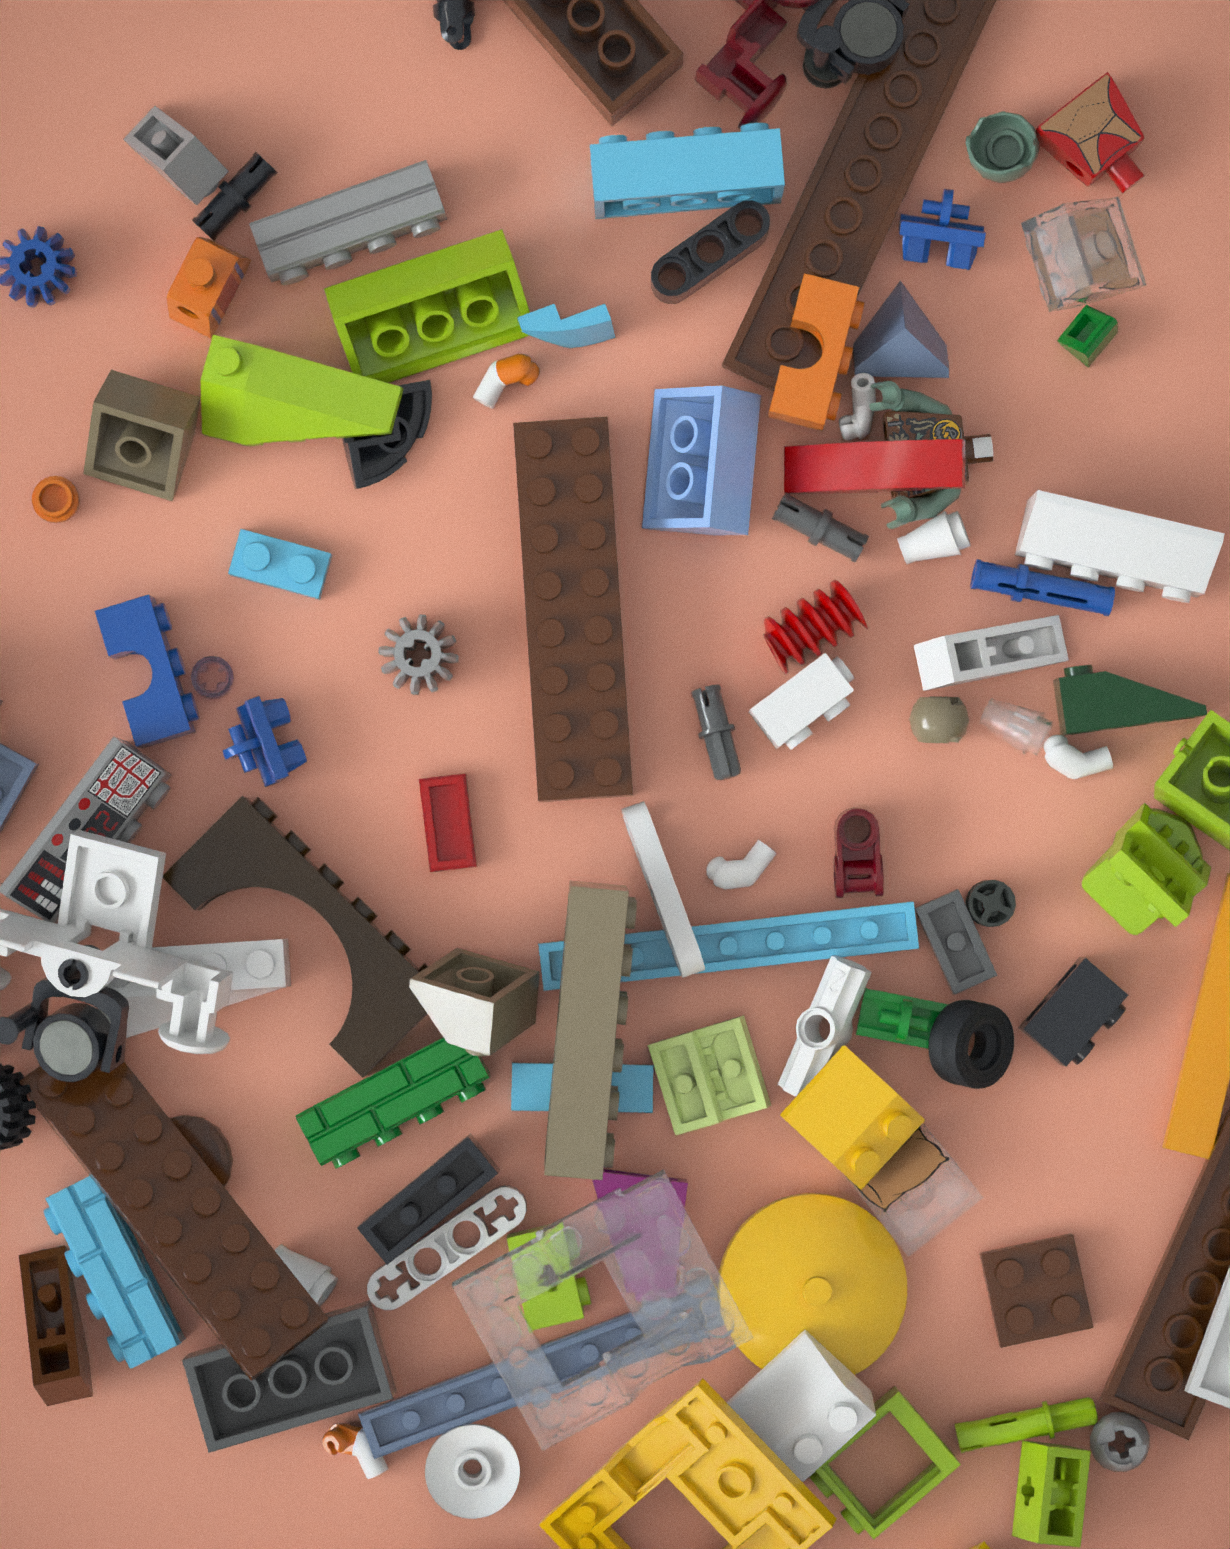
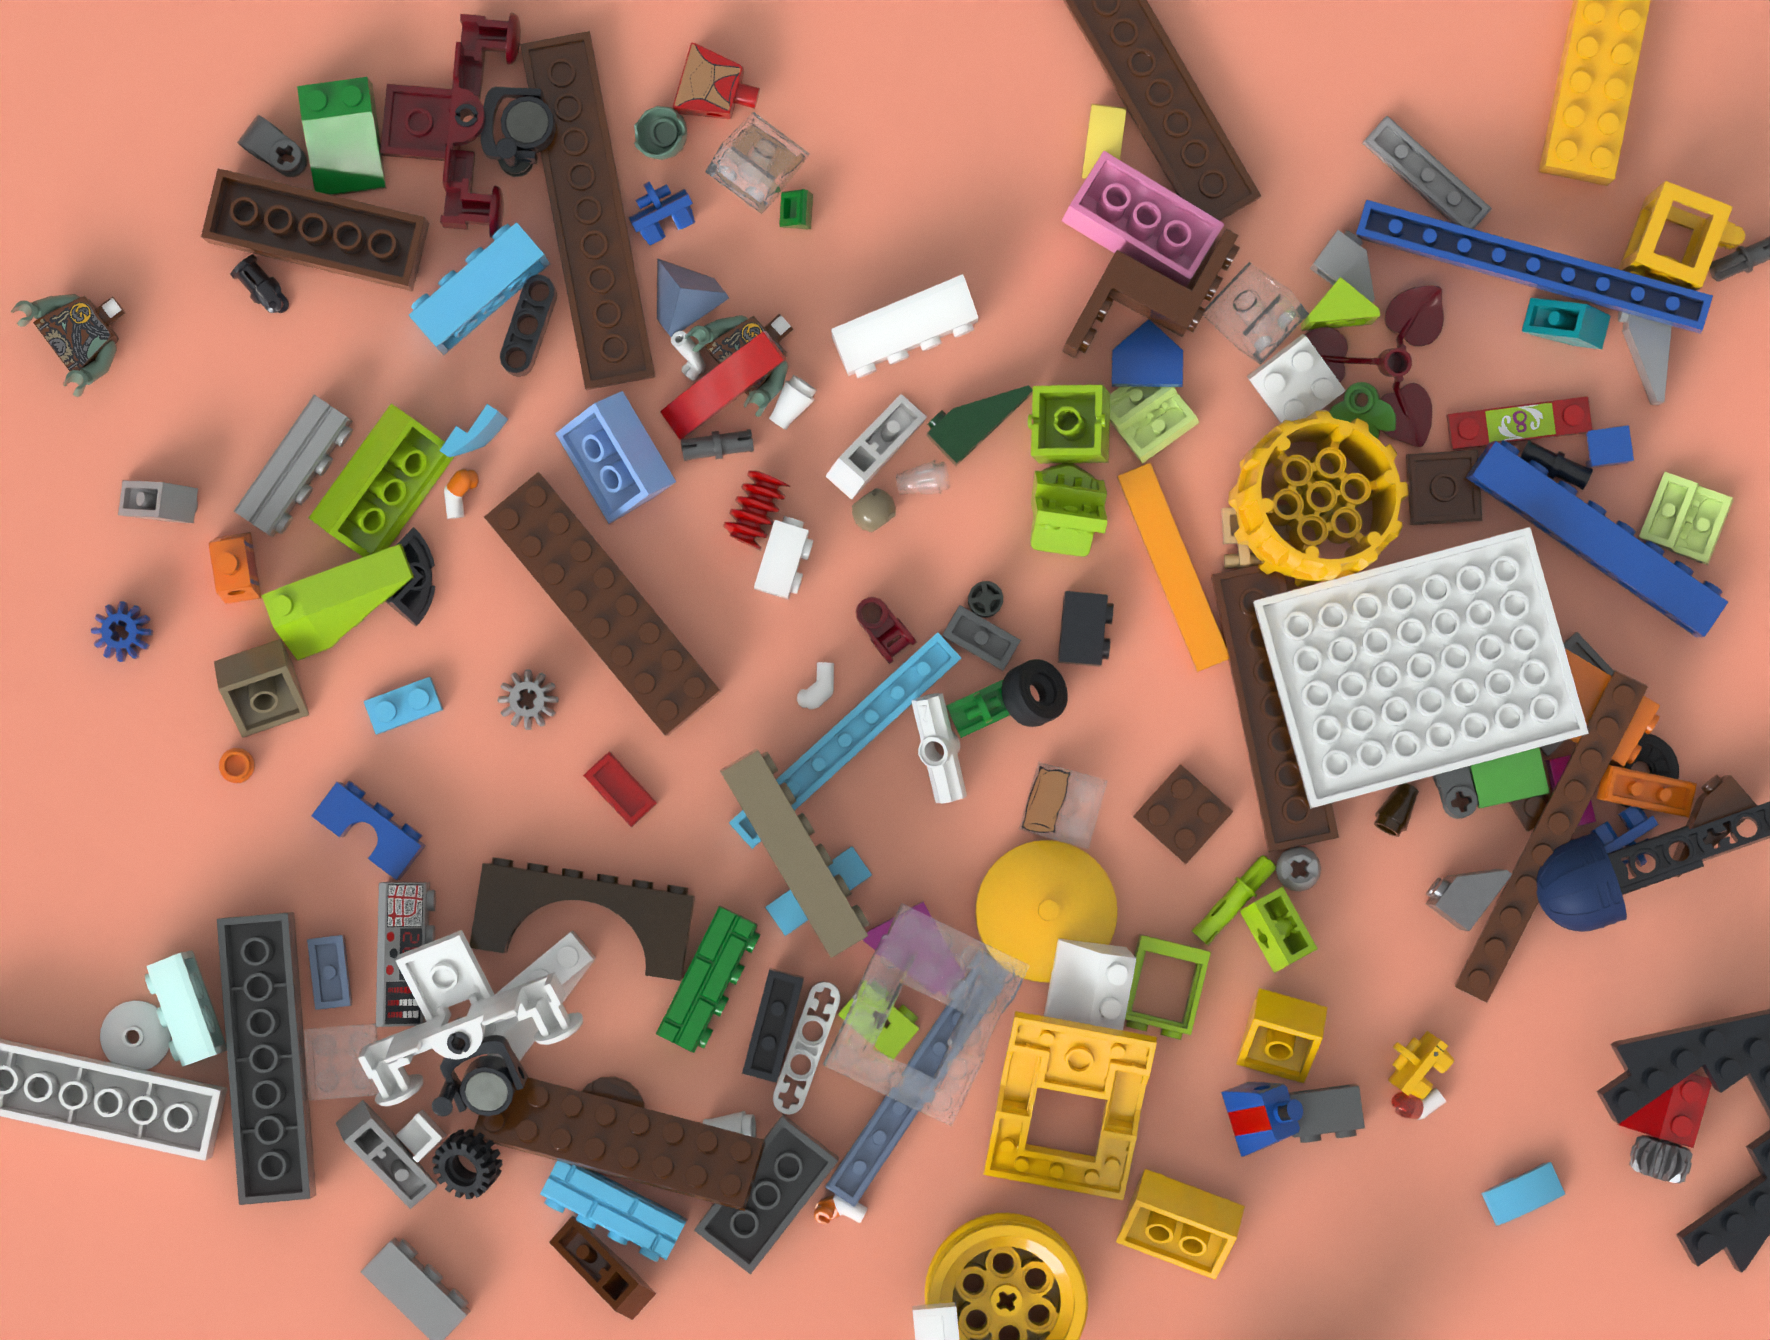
camera: 40 degrees left, 0 degrees up
(202, 667) = (401, 803): bush -> none
(234, 196) = (212, 500): black pin -> none
(258, 721) = (468, 825): blue hips -> none
(472, 1494) = (922, 1189): white dish -> none
(477, 999) = (716, 882): dark tan slope -> none
(663, 889) = (780, 734): white beam -> none
(709, 1075) = (890, 827): yellowish green slope -> none
(716, 732) = (744, 615): dark grey axle -> none
(827, 312) = (627, 311): orange arch -> none
(852, 1117) = (994, 789): yellow slope -> none
(1042, 587) = (878, 384): blue pin -> none
(1072, 762) = (973, 477): white arm -> none

